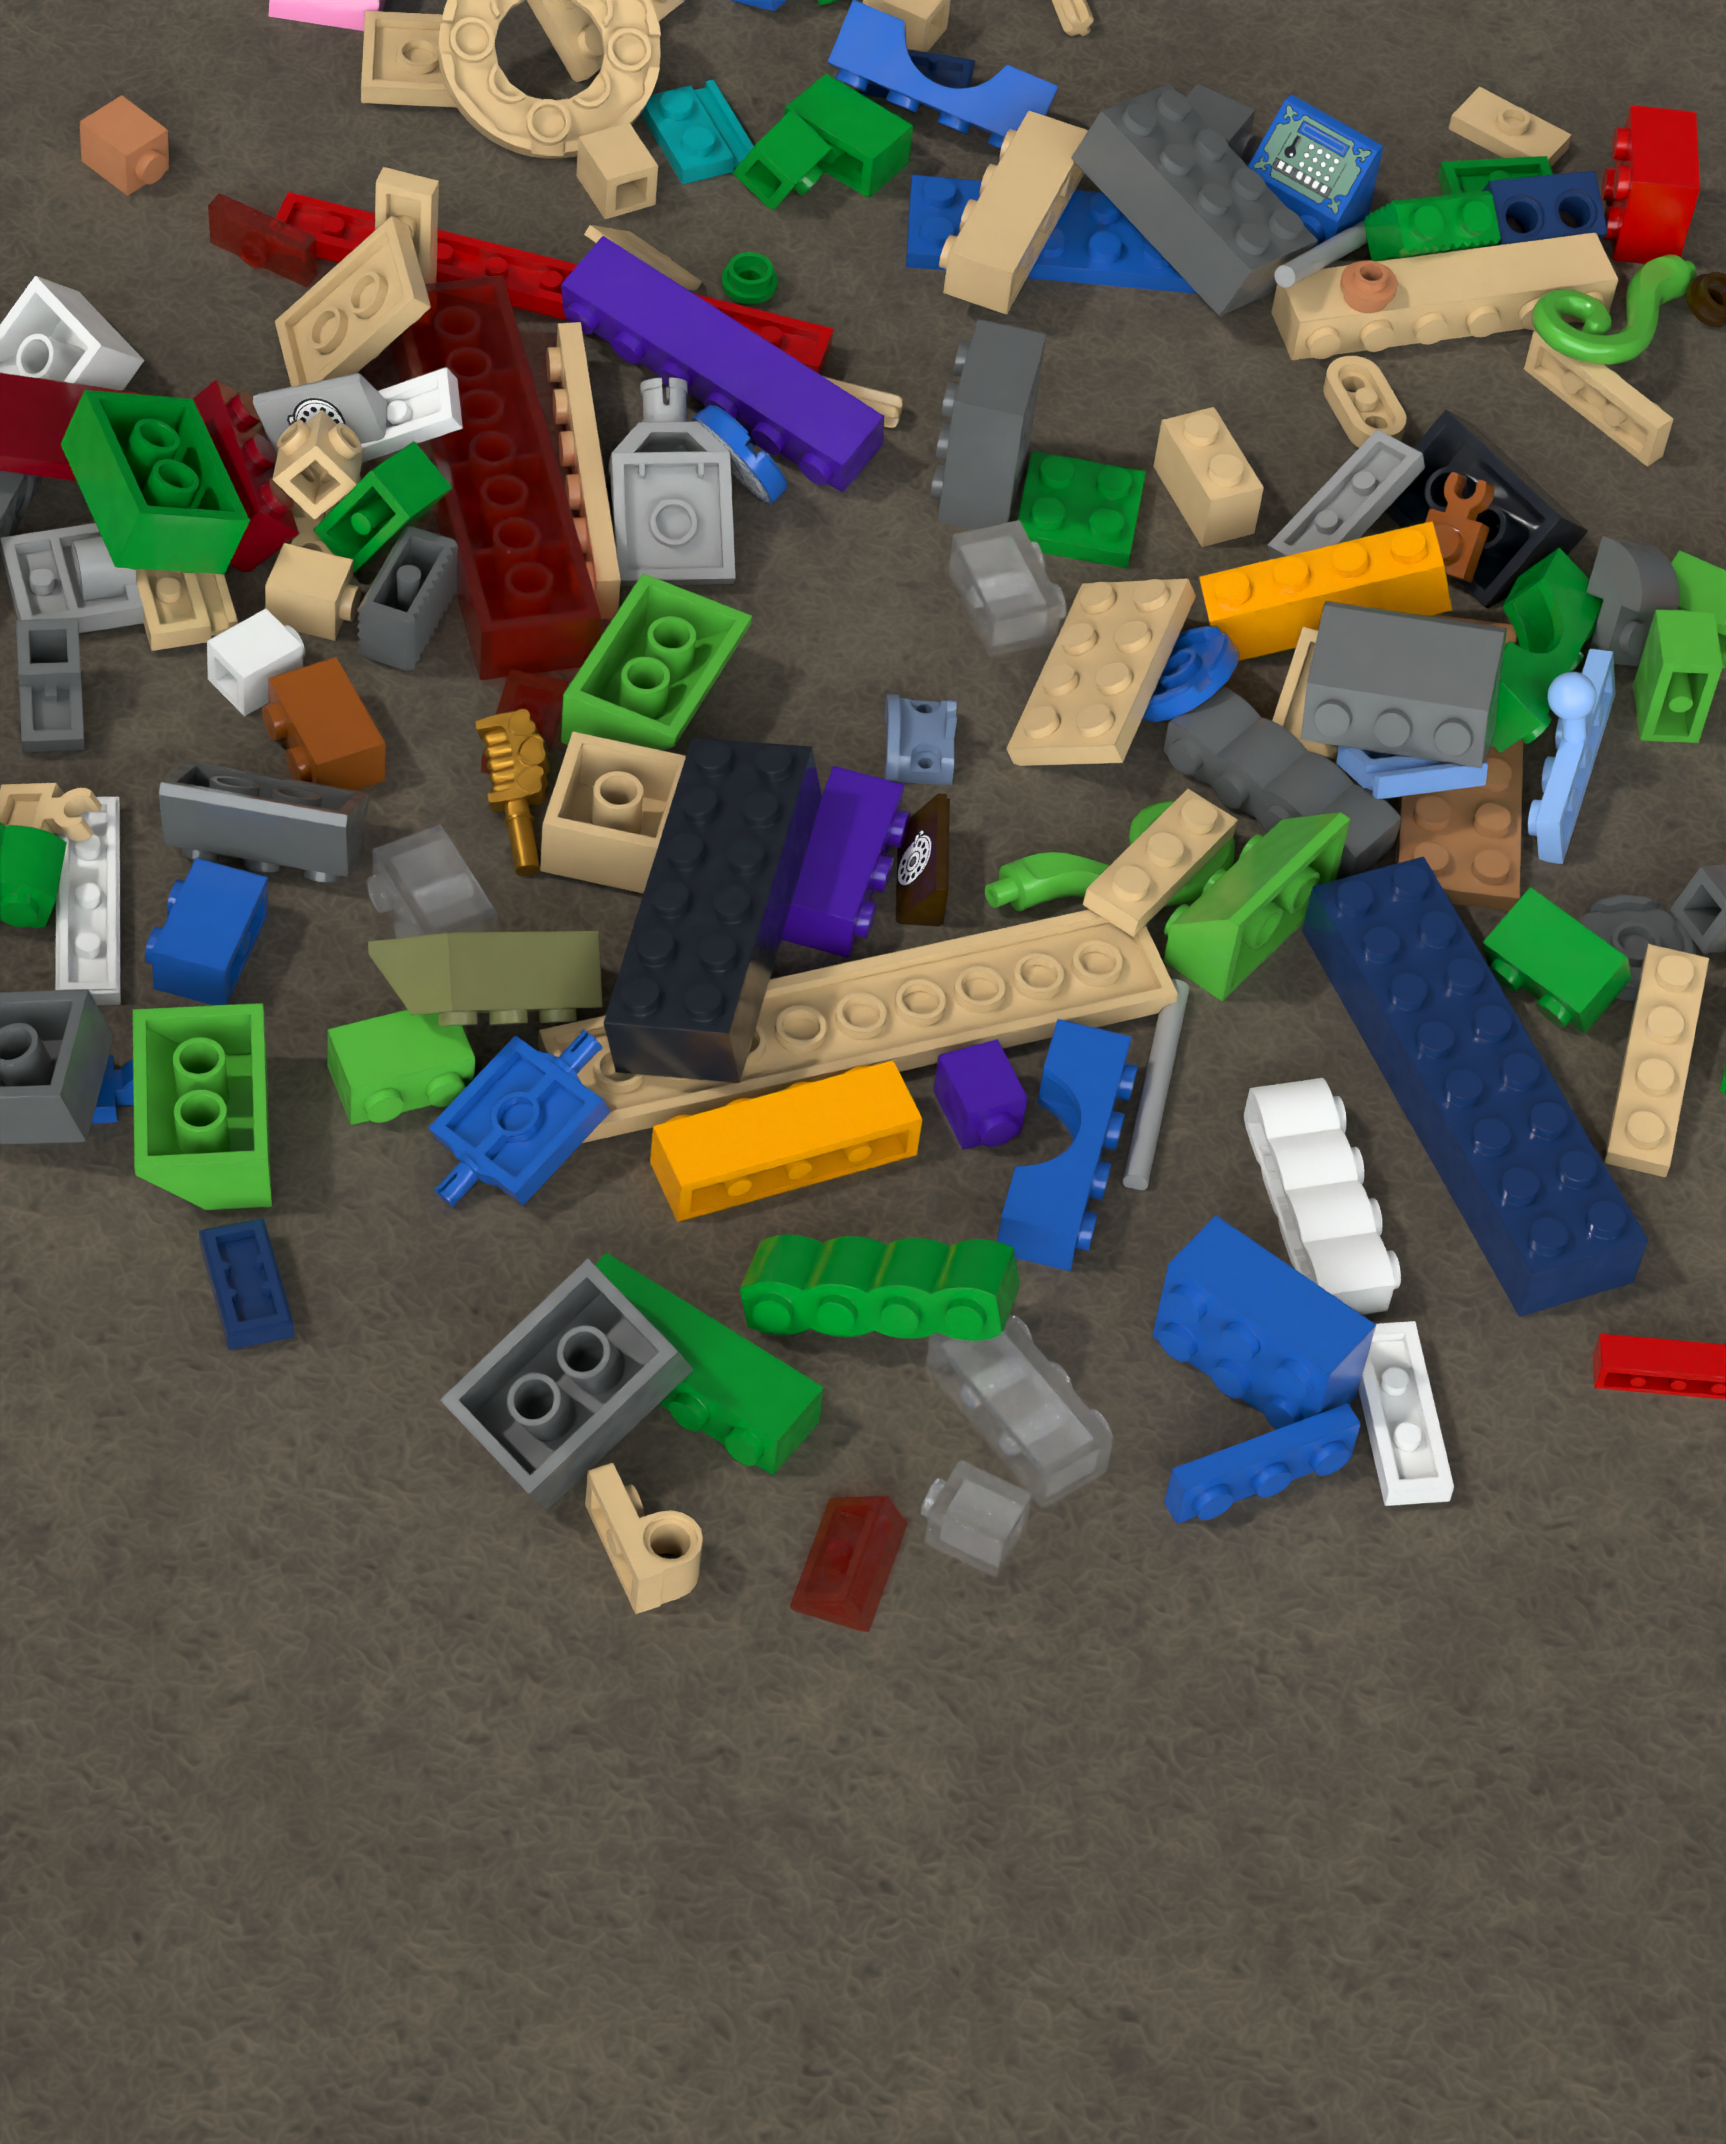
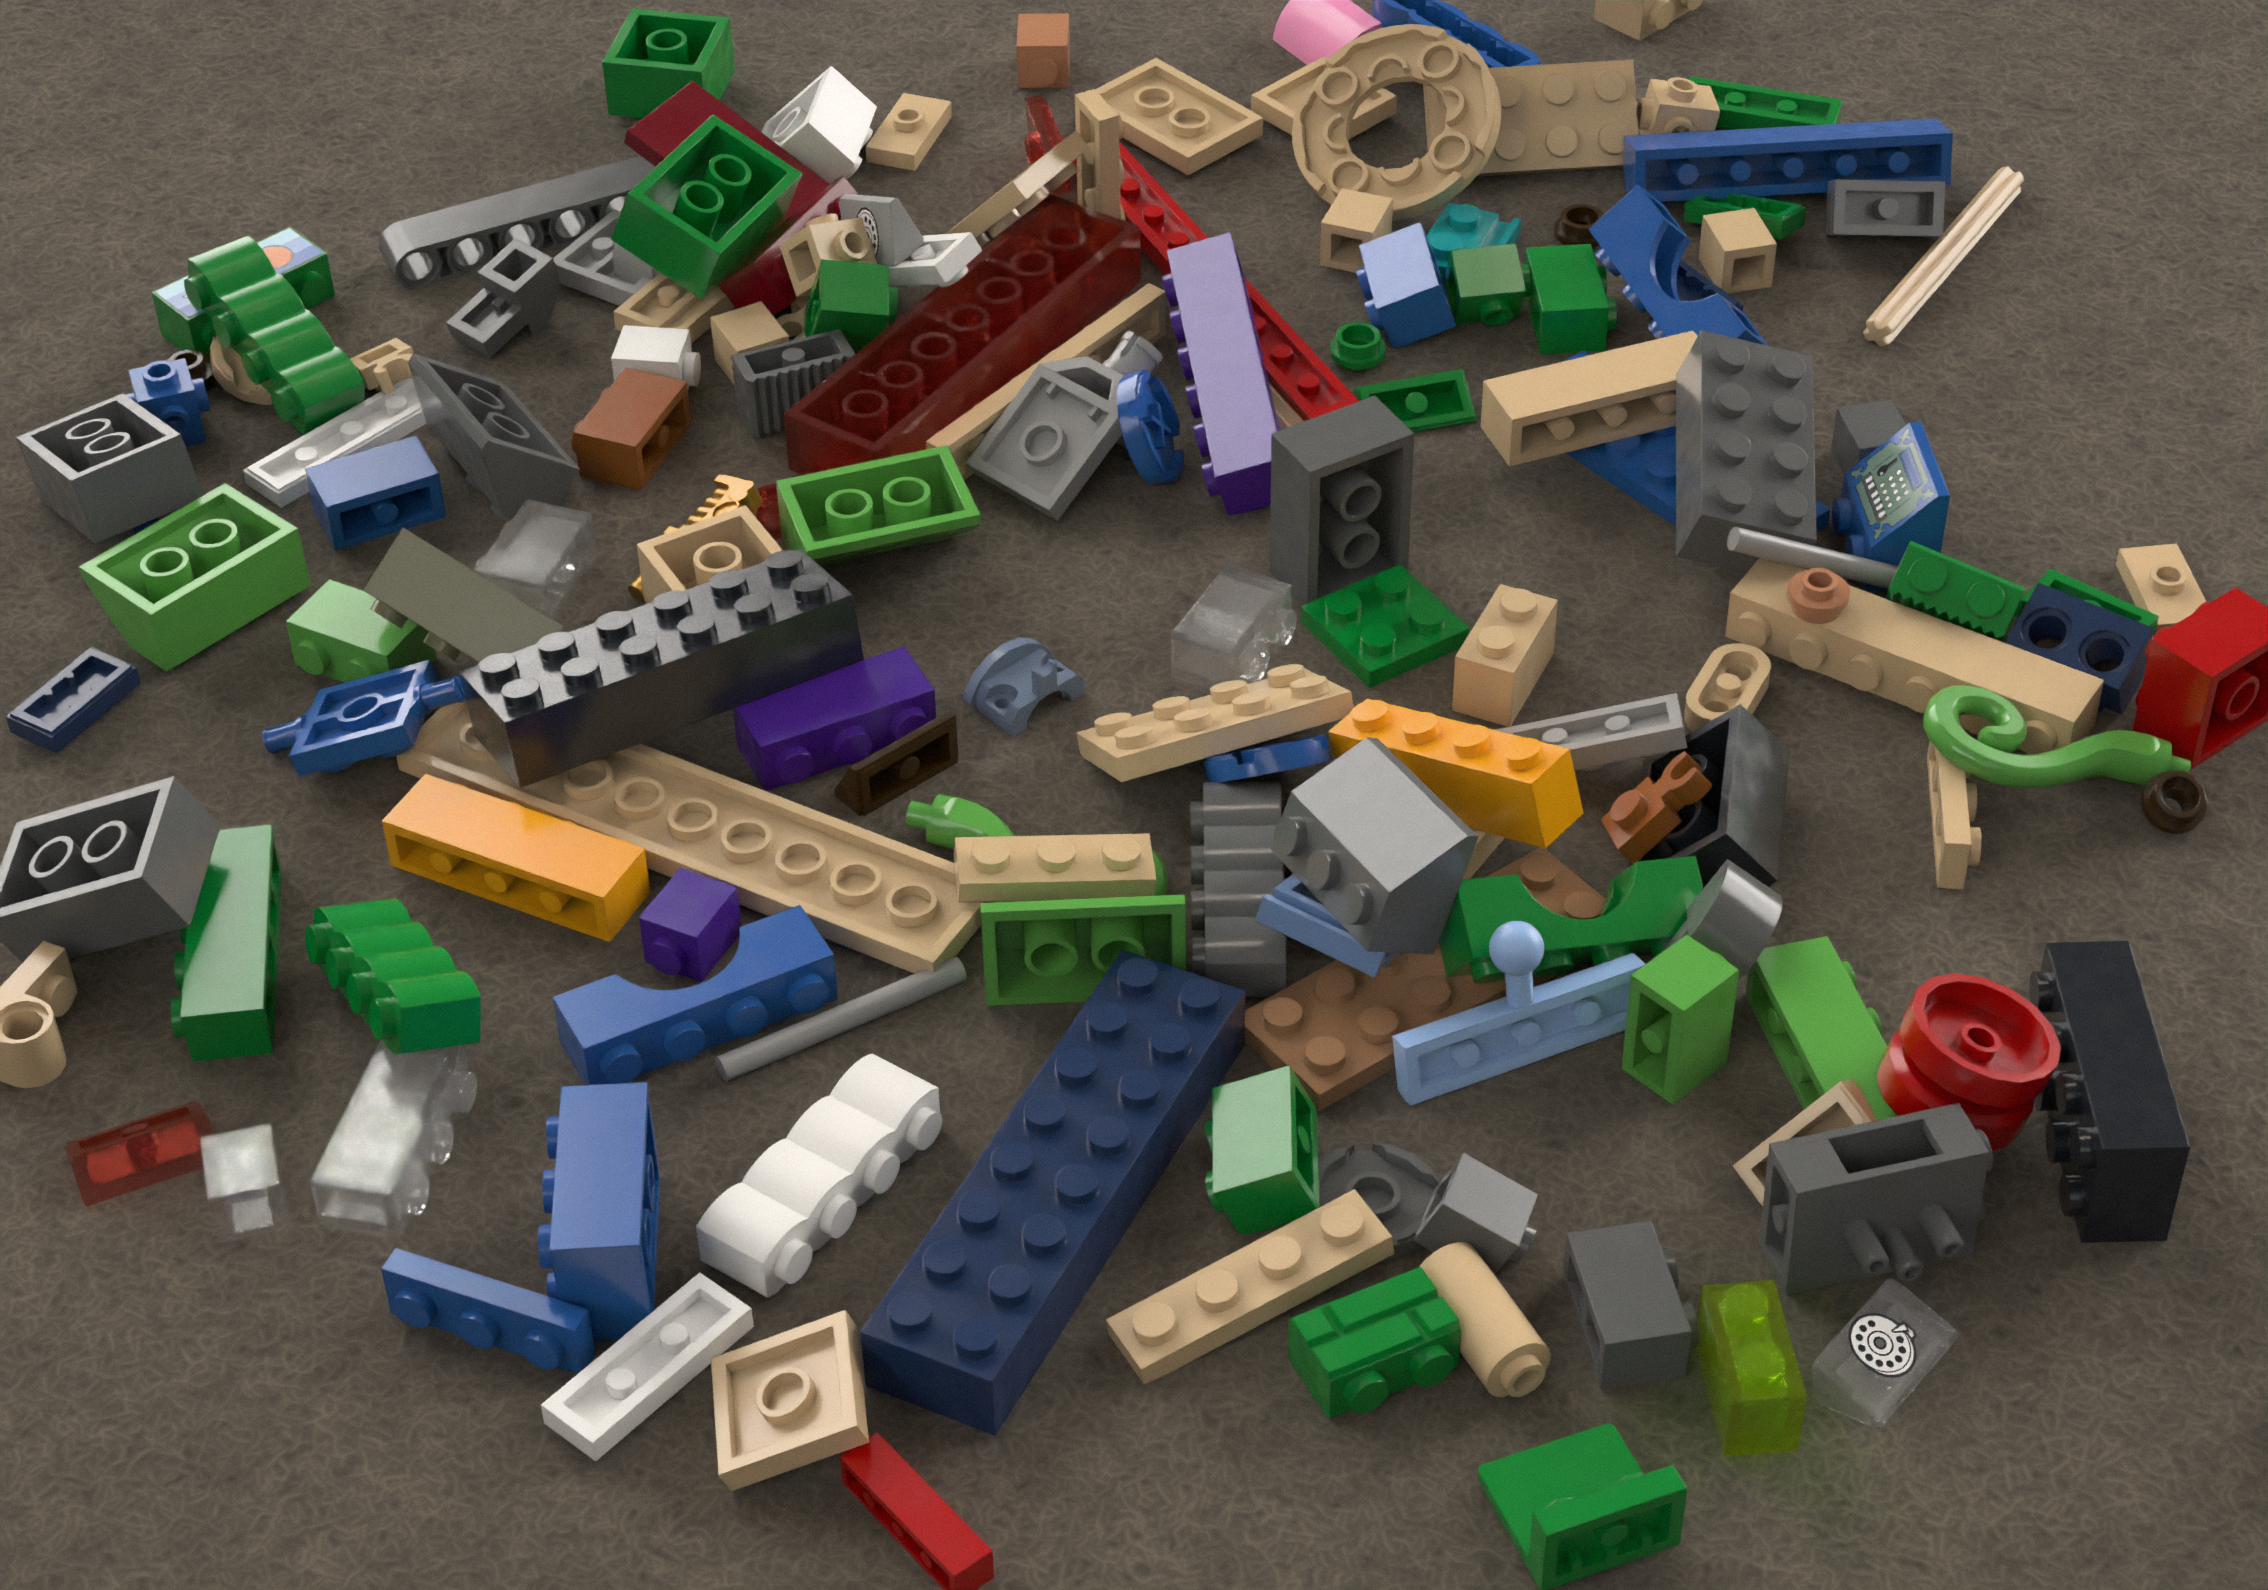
camera: 55 degrees right, 10 degrees down
(113, 293) = (908, 131): none -> tan plate
(311, 145) = (1179, 116): none -> tan plate
(646, 253) = (1283, 285): tan piece -> none
(728, 198) = (1404, 287): none -> brick
(762, 59) = (1574, 225): none -> dark brown plate
(856, 302) = (1425, 400): none -> green slope
(1524, 1358) = (788, 1400): none -> tan plate

